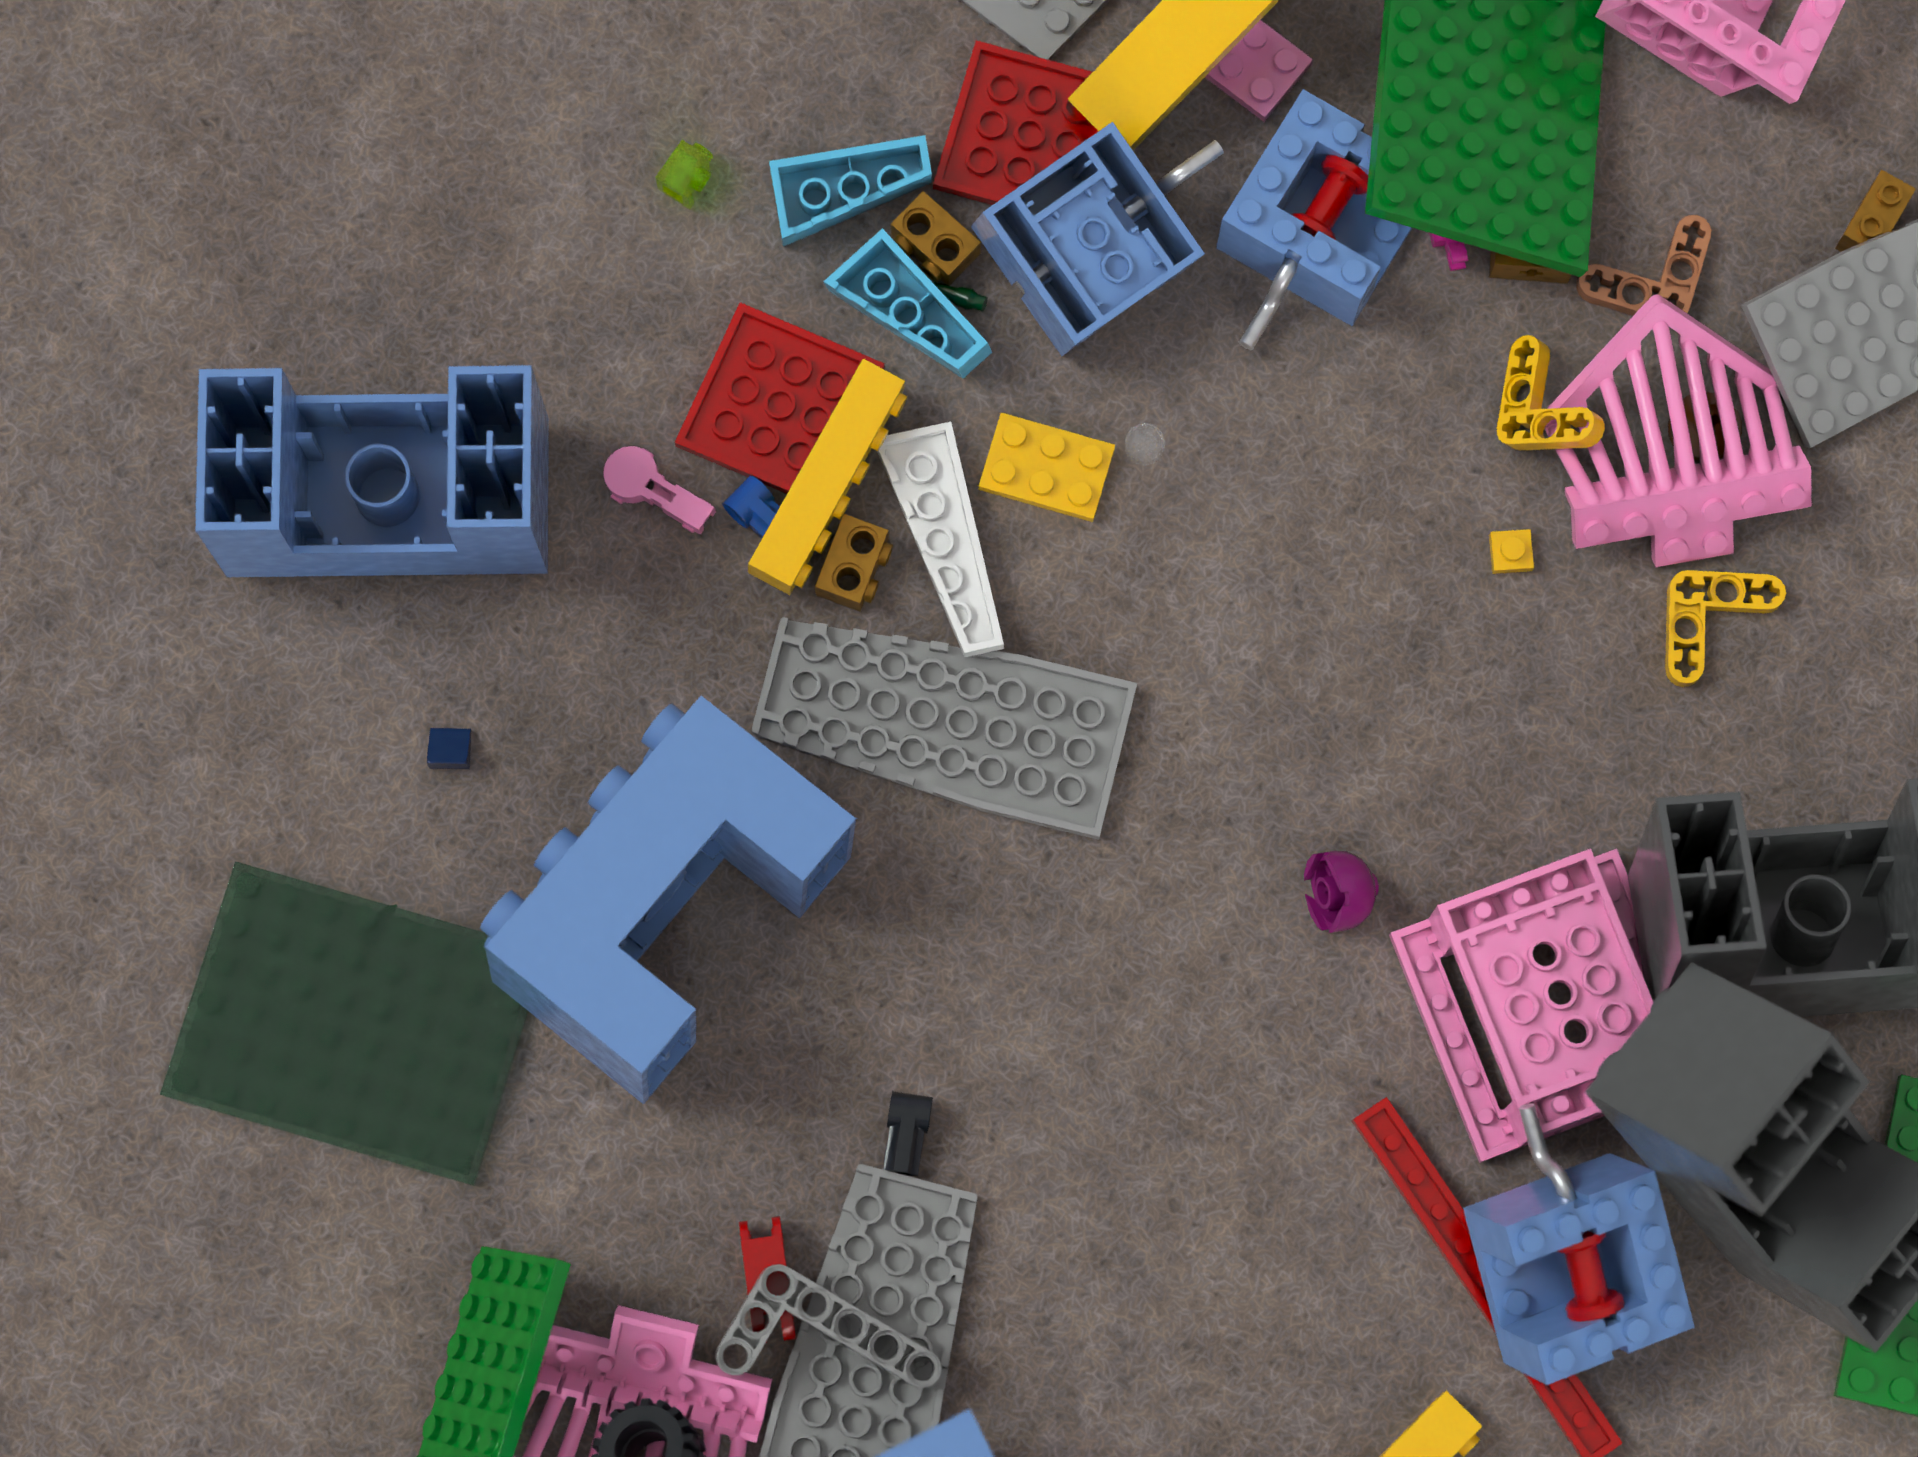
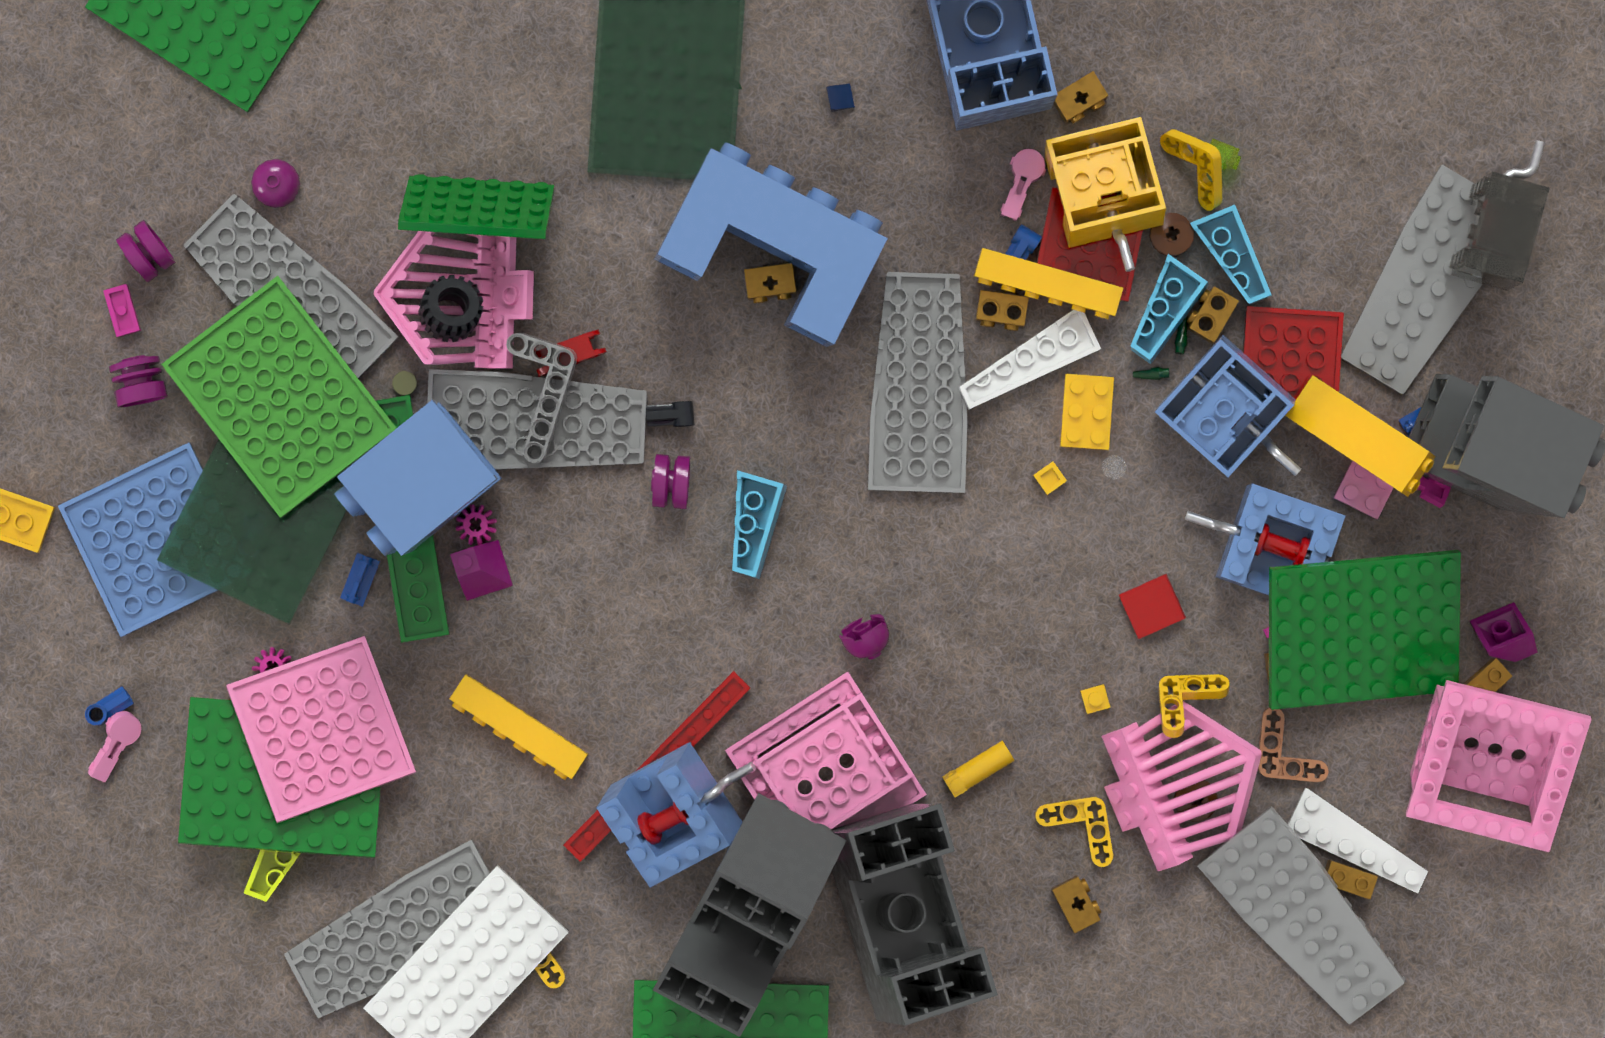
camera: 85 degrees right, 10 degrees up
(541, 346) = (1088, 86): none -> pearl gold brick
(659, 351) = (1089, 173): none -> yellow piece
(683, 200) = (1207, 160): none -> yellow beam
(717, 900) = (779, 273): none -> pearl gold brick
(811, 270) = (1182, 240): none -> reddish brown piece
(1008, 351) = (1155, 373): none -> dark green piece
(1017, 1159) = (670, 481): none -> magenta wheel
(1106, 1027) = (755, 521): none -> medium azure wedge
(1141, 545) = (1050, 478): none -> yellow plate
(1380, 430) = (1152, 606): none -> red slope
(1590, 758) = (978, 768): none -> yellow piece
(1807, 213) = (1342, 836): none -> white wing
(1820, 663) = (1077, 918): none -> pearl gold brick

